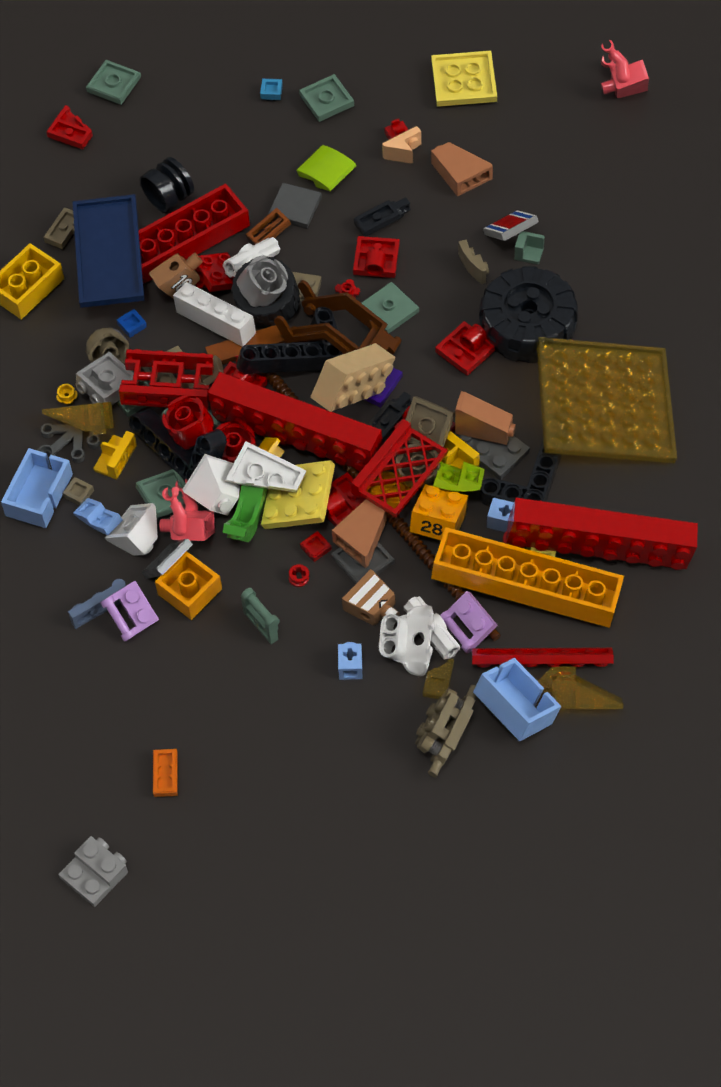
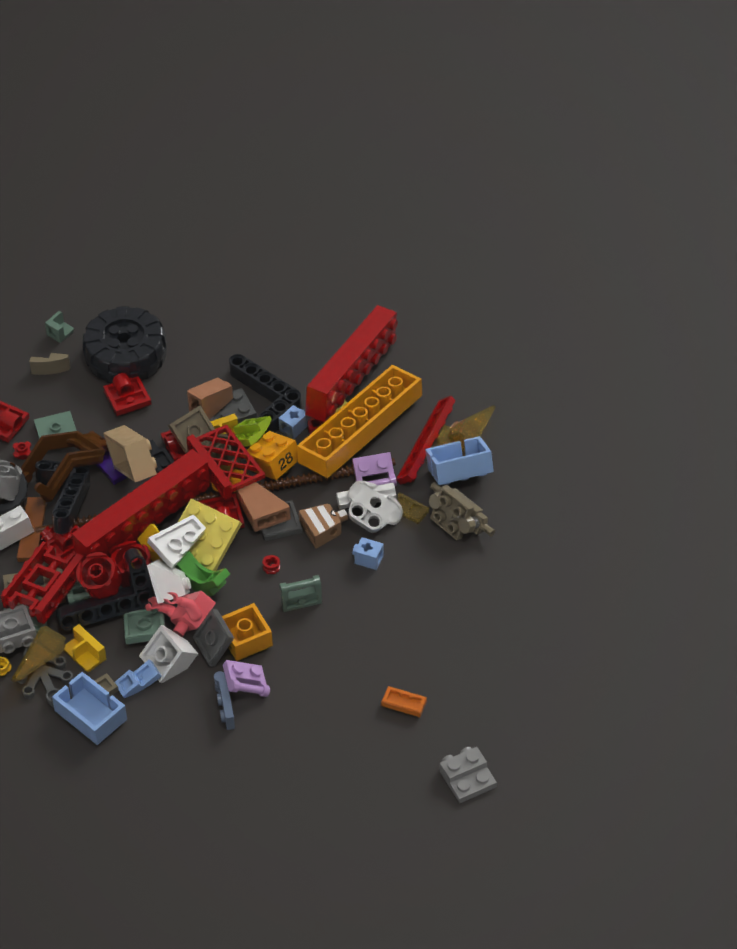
camera: 70 degrees left, 10 degrees down
(315, 546) = (250, 546): red tile -> none
(510, 225) = (33, 328): tile -> none
(606, 400) = (231, 326): clear yellow plate -> none

